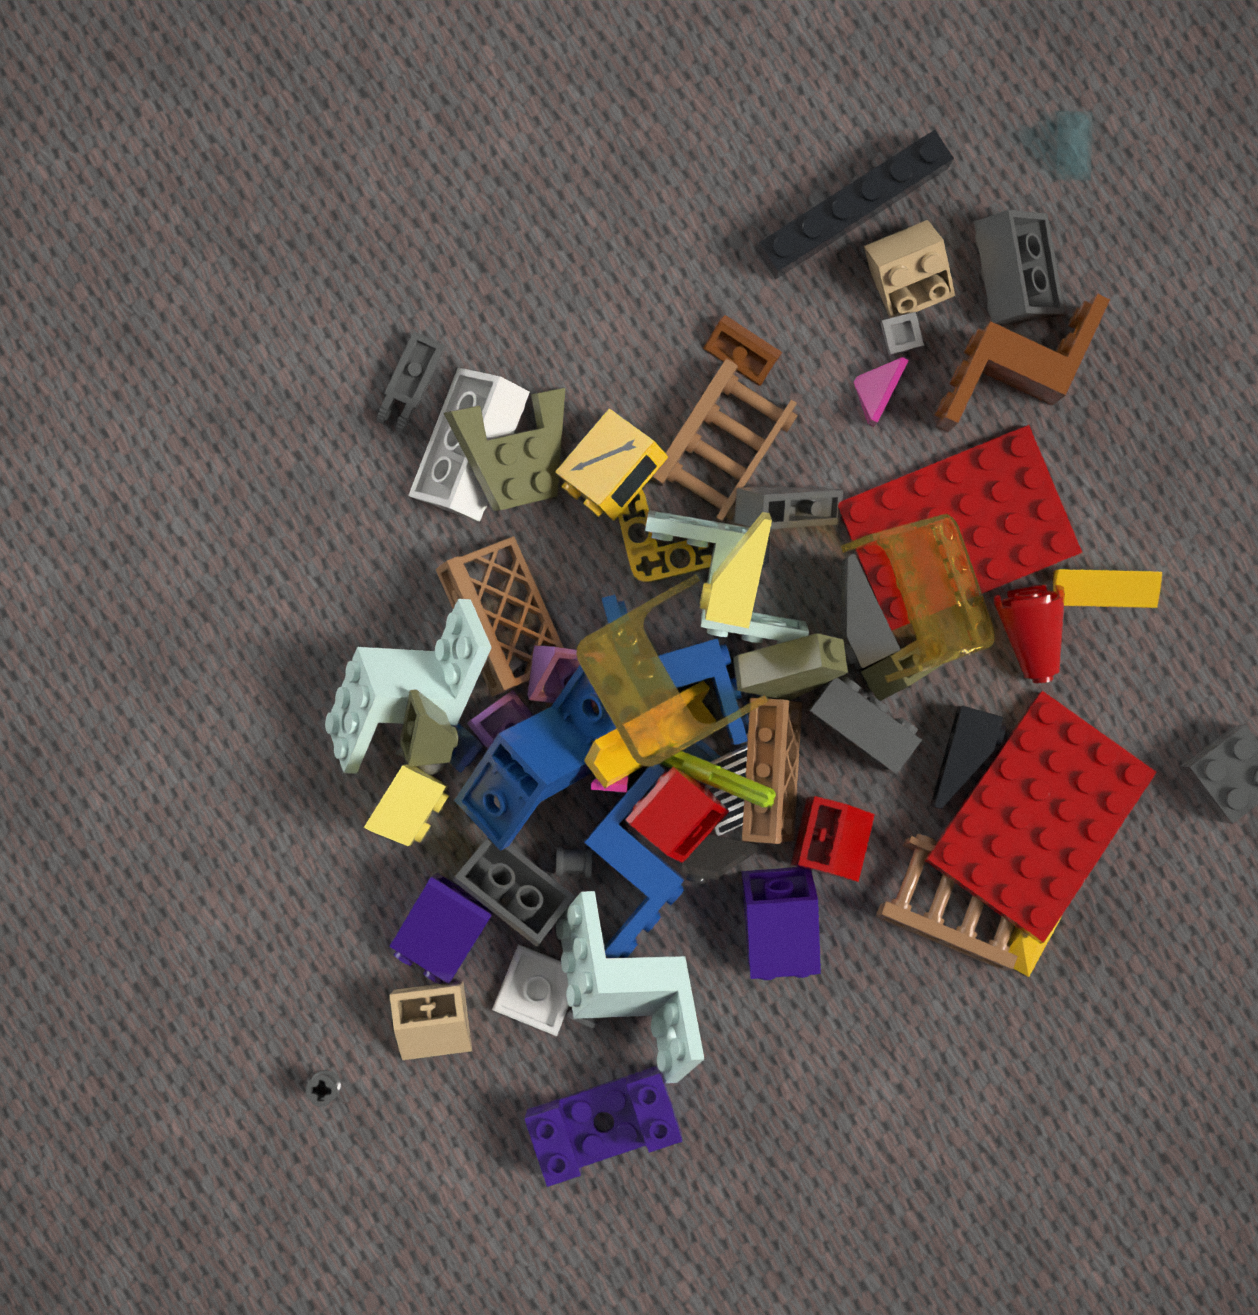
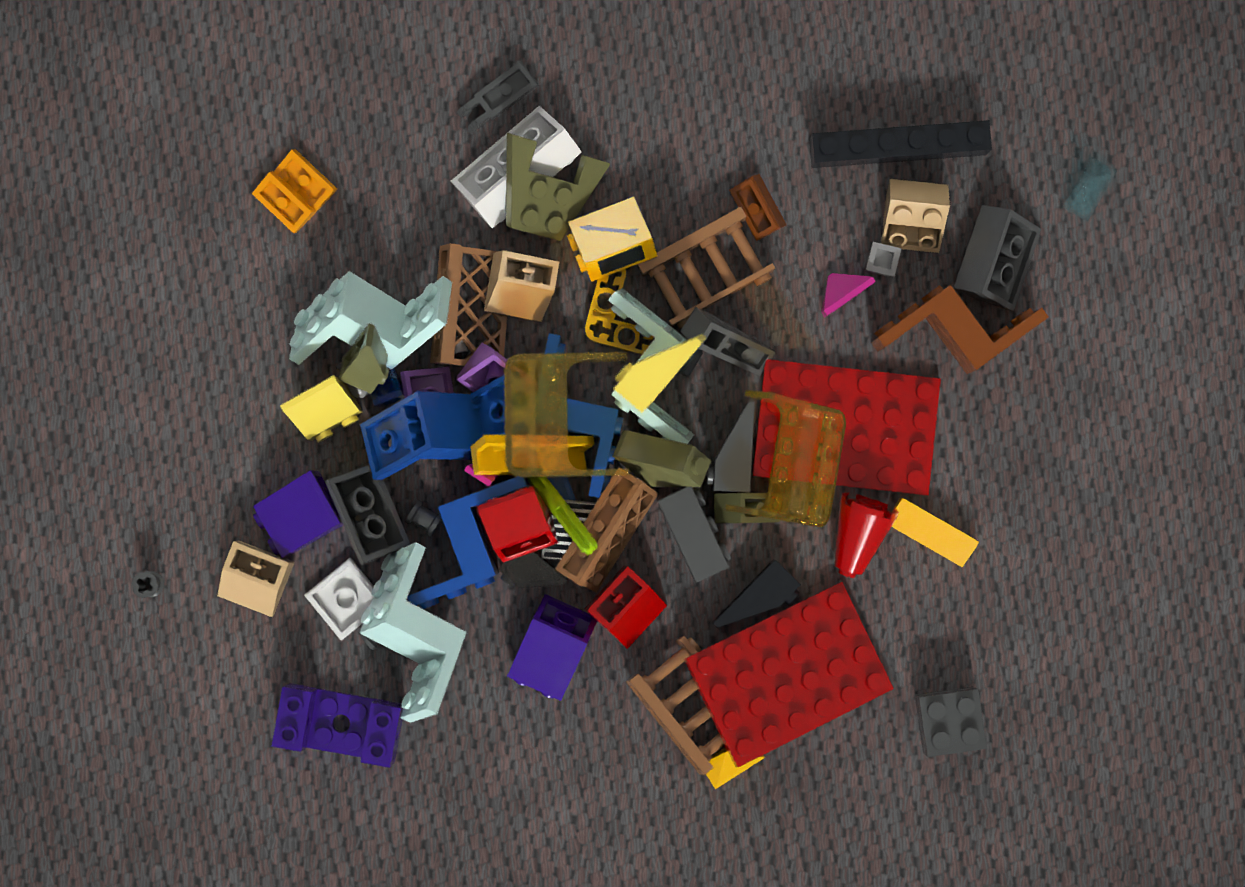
camera: 30 degrees right, 0 degrees up
(251, 594) = (294, 191): none -> light orange slope
(542, 564) = (520, 285): none -> tan slope

